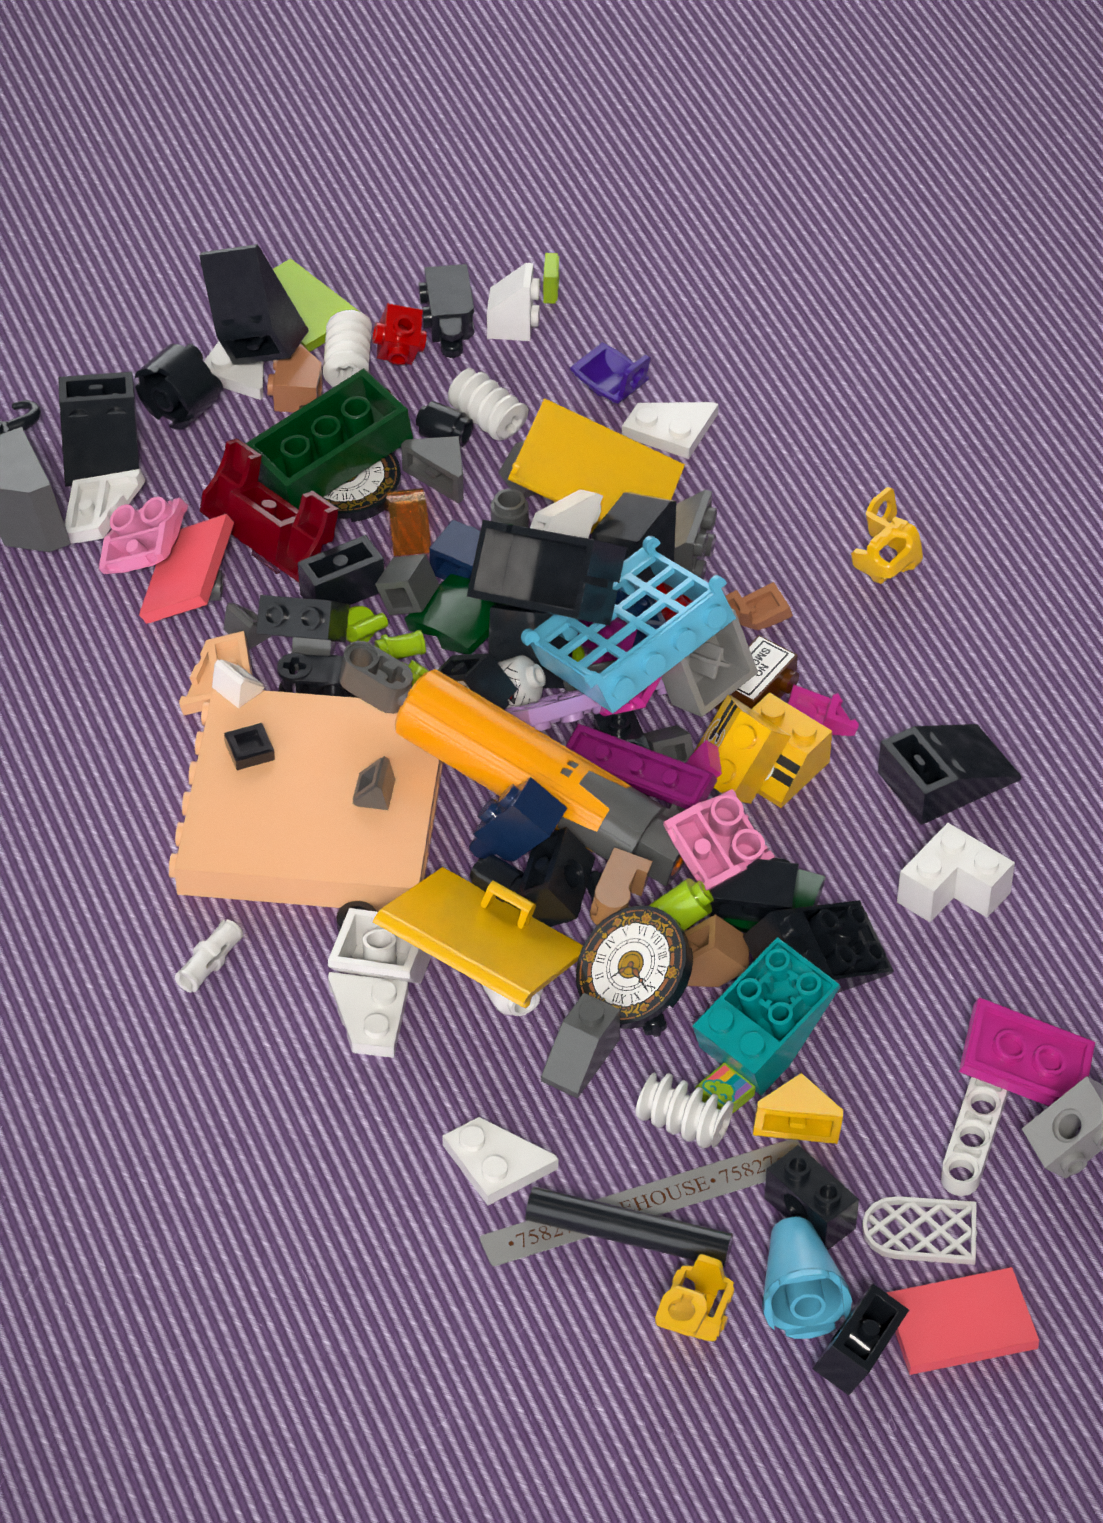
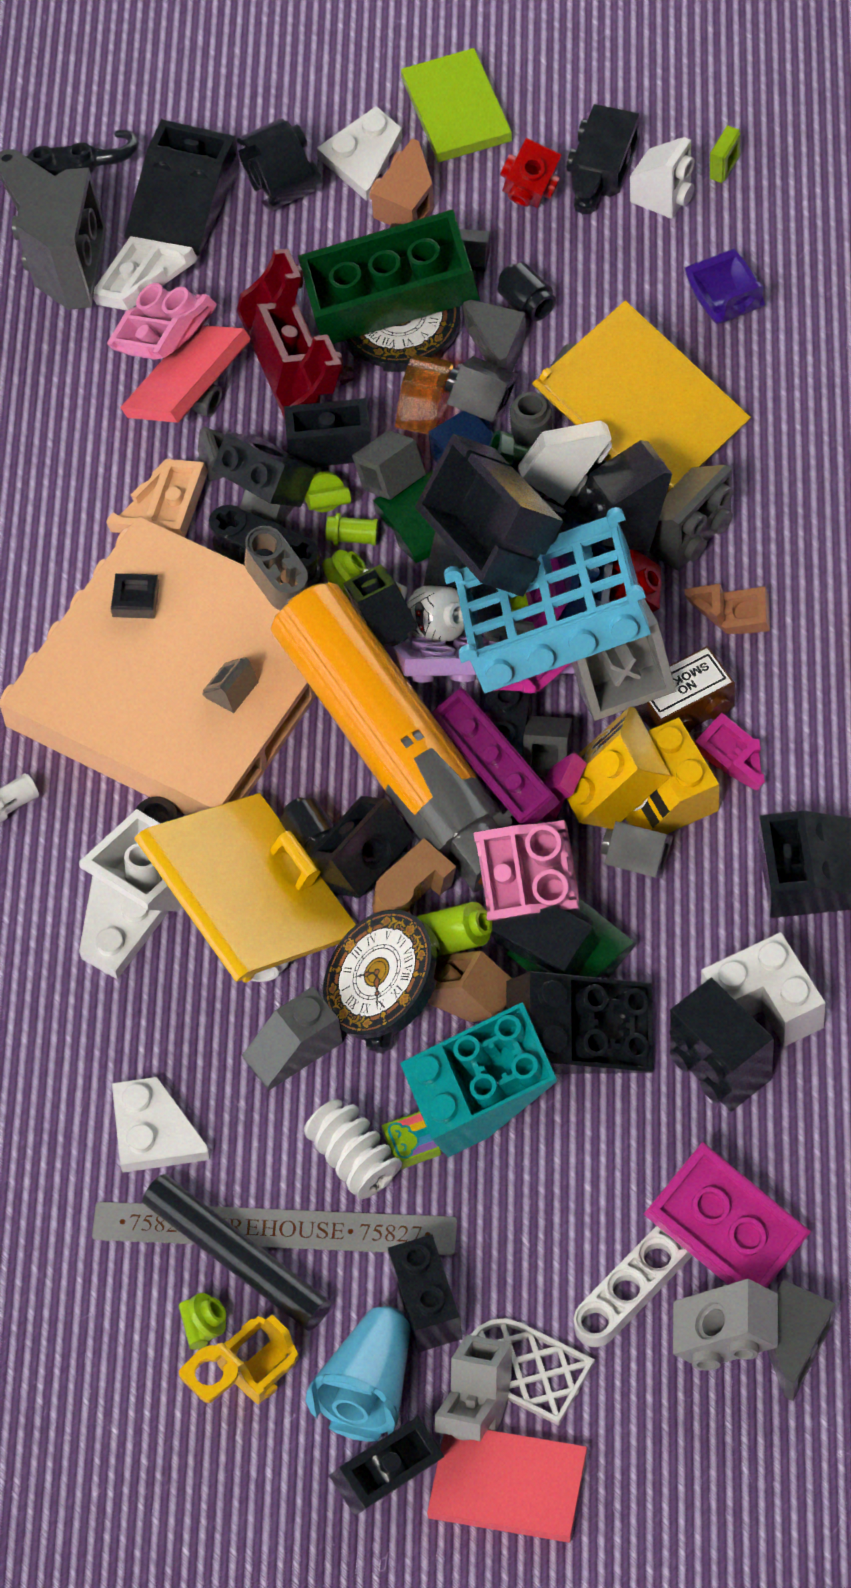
camera: 30 degrees right, 10 degrees up
(235, 683) = (158, 520): white slope -> none
(250, 306) = (377, 103): black slope -> none
(346, 346) = (472, 173): white piece -> none
(457, 500) = (480, 388): none -> black brick
(487, 404) = (579, 282): white piece -> none
(516, 821) = (344, 773): dark blue hinge -> none
(628, 1291) = (202, 1319): none -> lime plate
(671, 425) = (761, 366): white wing -> none
(787, 805) = (636, 849): none -> dark grey brick
(798, 1113) = (463, 1193): yellow slope -> none
(900, 1251) = (477, 1389): none -> light grey brick
(947, 923) = (720, 1045): none -> black brick

